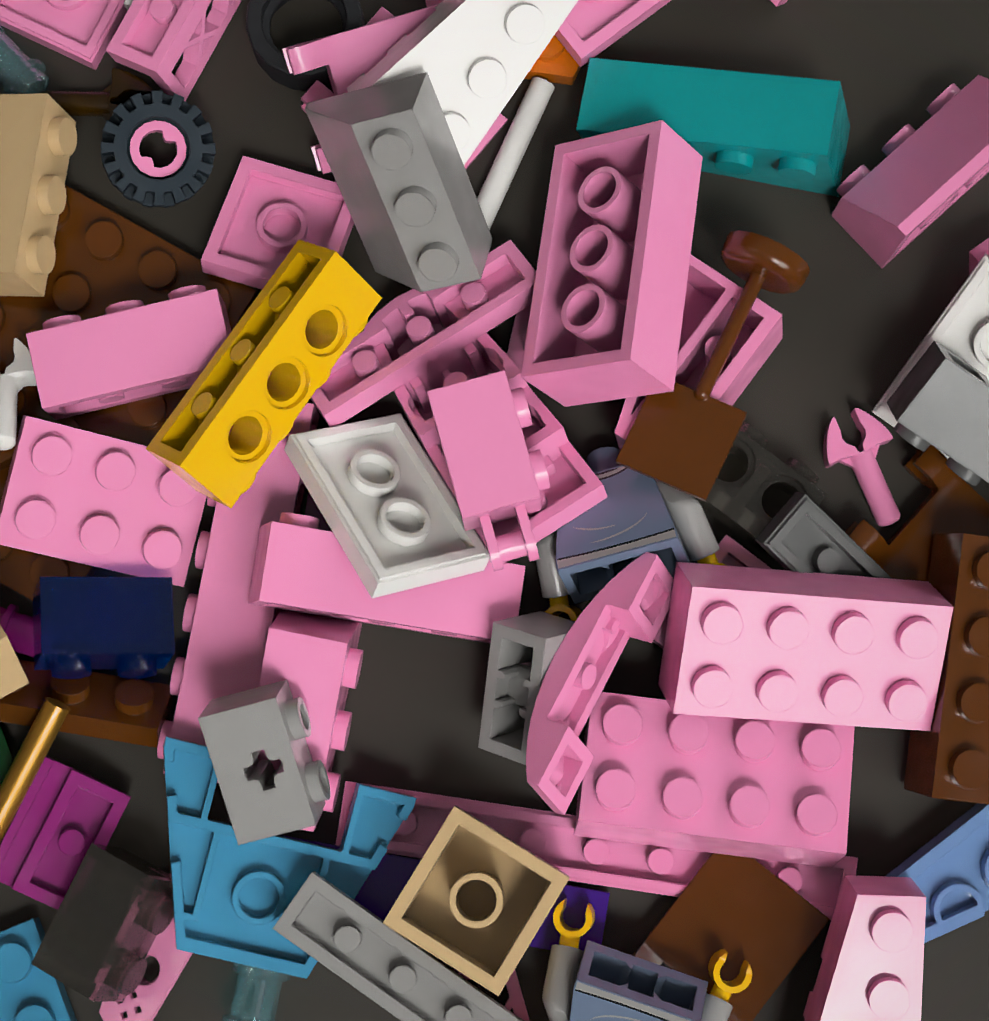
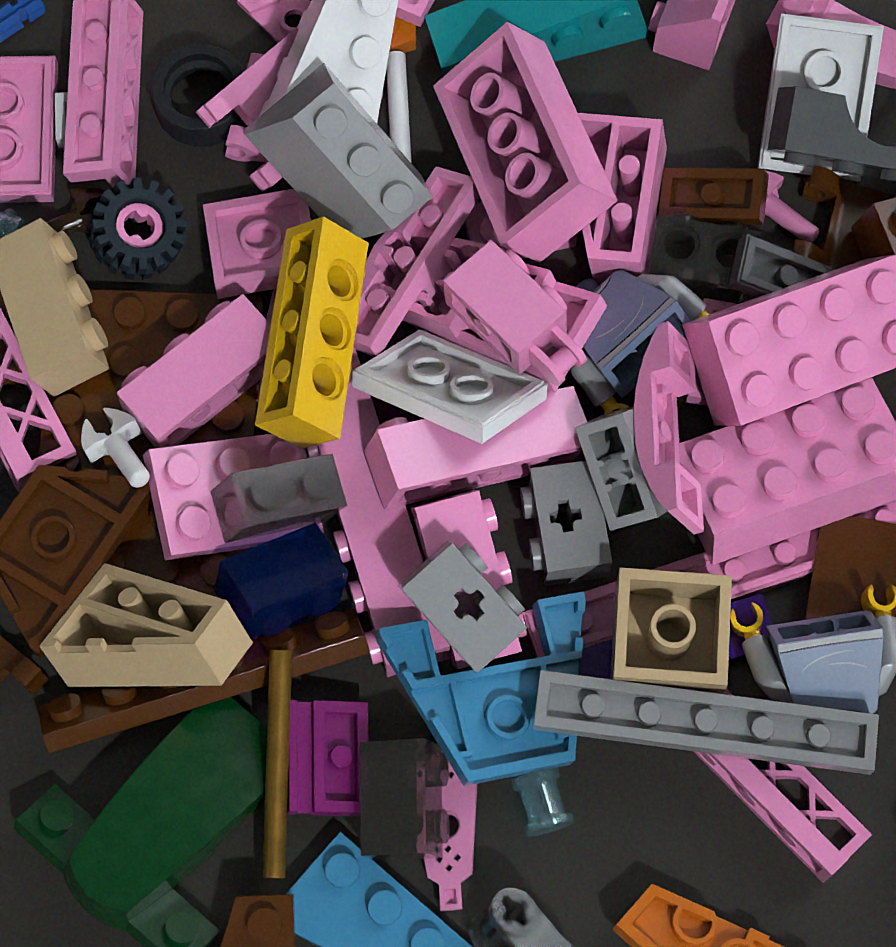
camera: 30 degrees left, 10 degrees down
(136, 539) = (278, 498): none -> clear smoke brick
(446, 749) = (573, 554): none -> light grey brick
(685, 432) = (636, 232): reddish brown piece -> none
(803, 423) = (715, 194): none -> reddish brown plate

